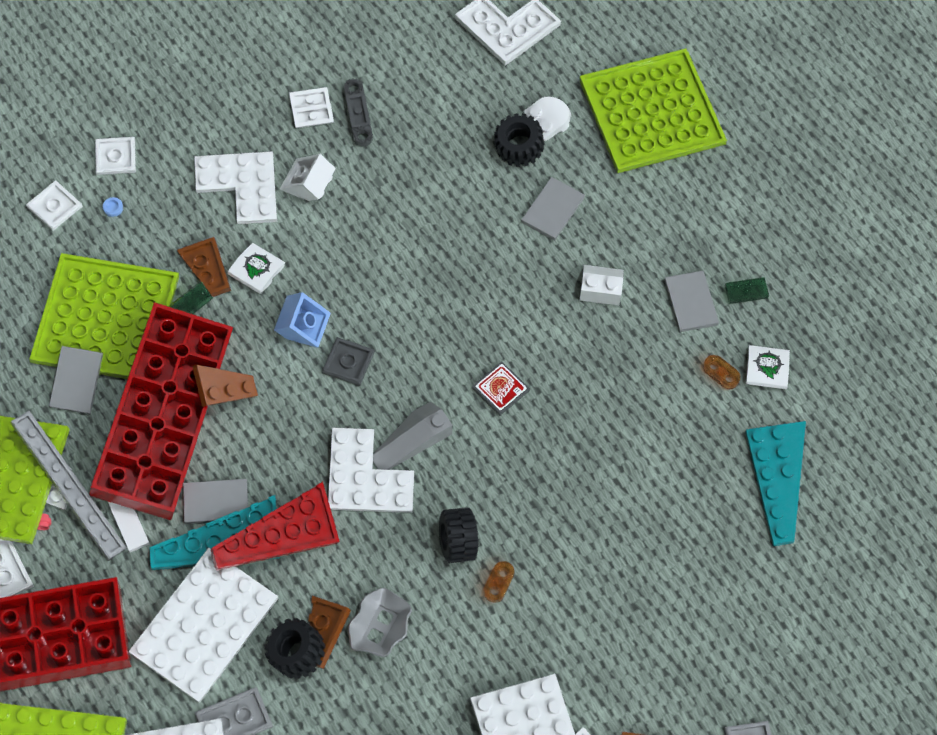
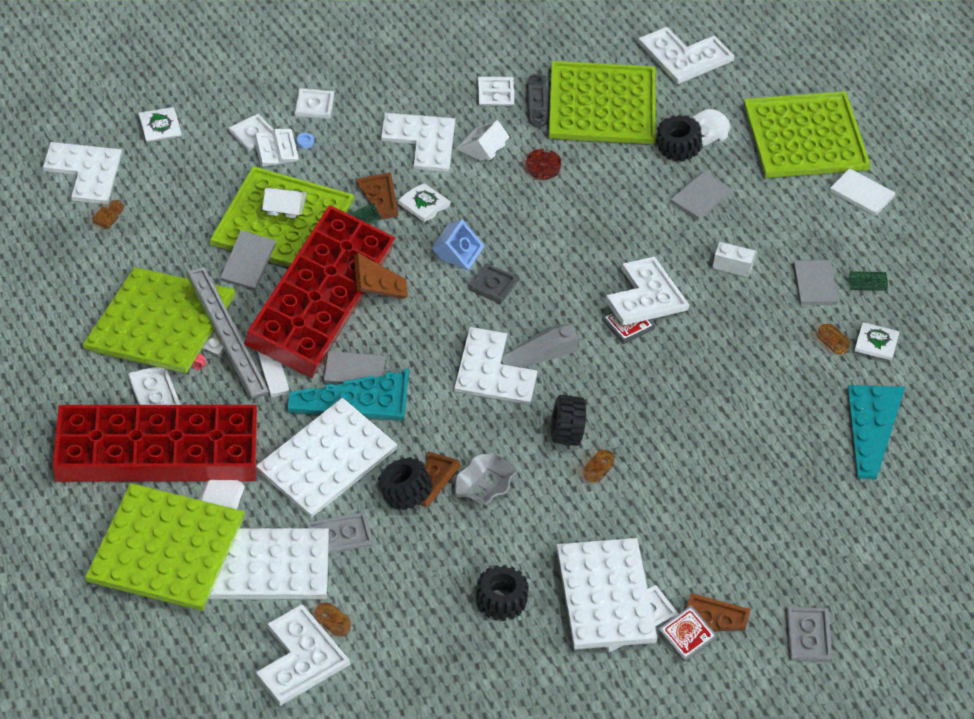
camera: 10 degrees right, 15 degrees down
(82, 223) = (276, 147): none -> white slope
(96, 693) = (222, 492): none -> white tile
(103, 298) = (284, 201): none -> white slope
(290, 529) = (413, 395): red wing -> none
(378, 186) = (540, 171): none -> clear red plate
(429, 104) = (603, 102): none -> lime plate
(524, 349) = (653, 293): none -> white plate
(722, 175) = (862, 192): none -> white tile

